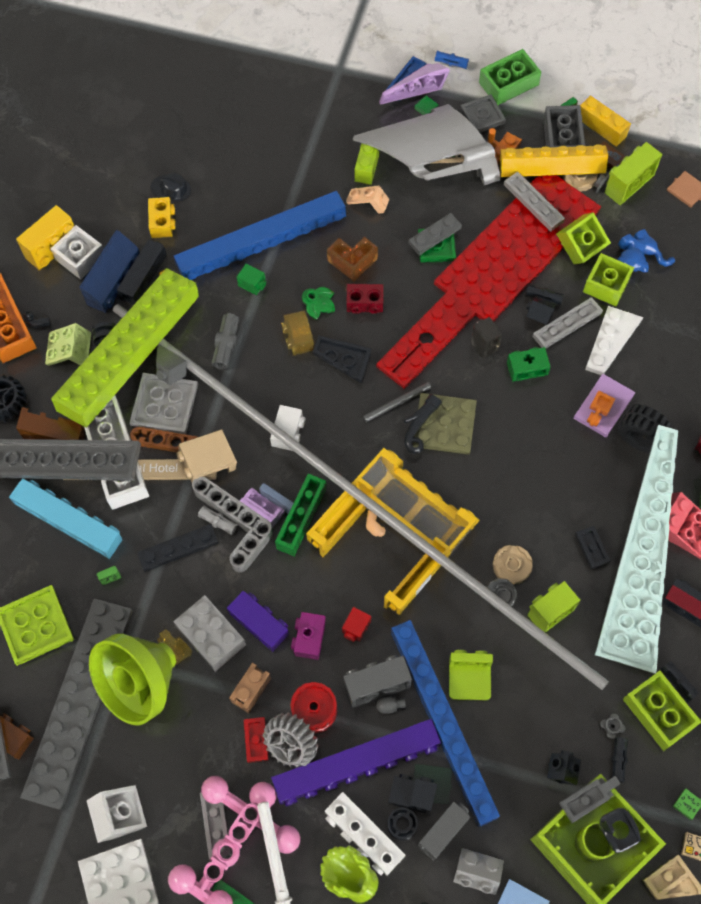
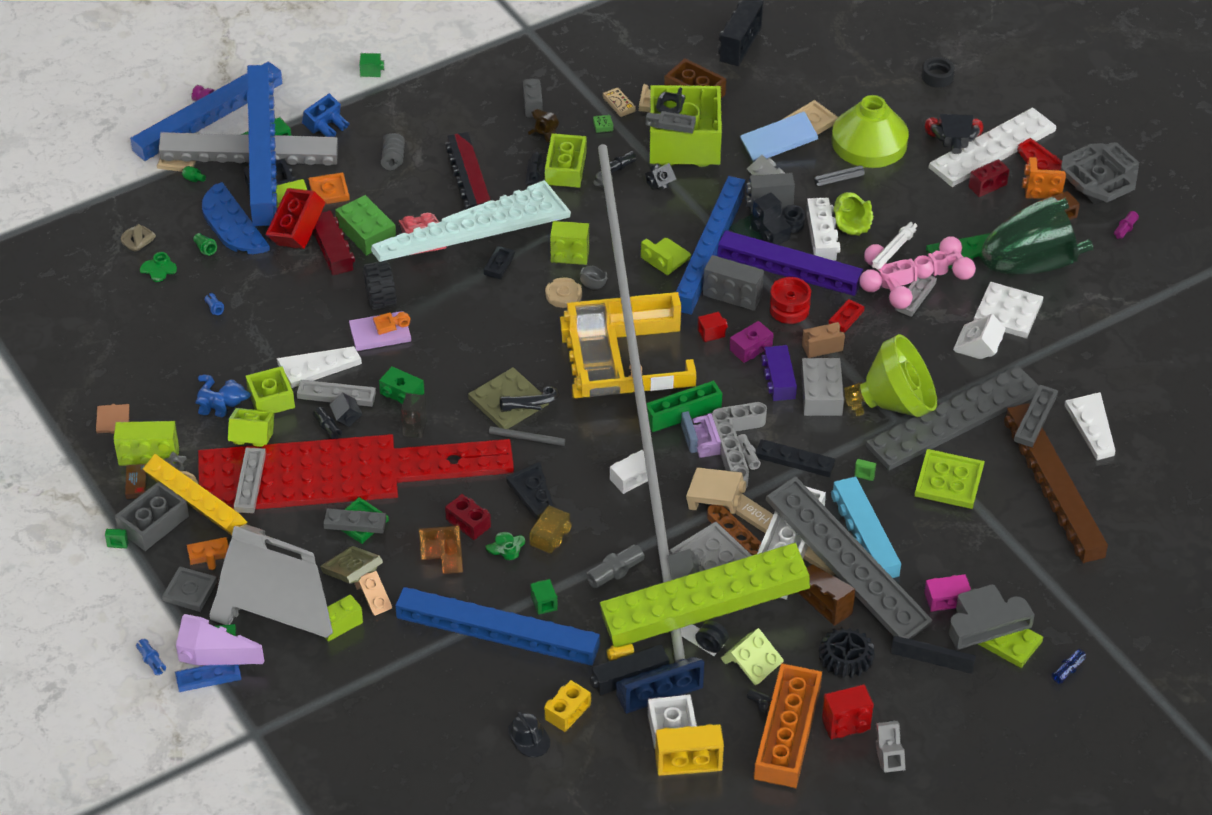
camera: 140 degrees left, 20 degrees down
(286, 737) = (824, 288): light grey gear -> none
(396, 195) = (351, 564): none -> olive plate
(510, 76) = (129, 594): bright green brick -> none
(604, 121) = (104, 504): yellow brick -> none

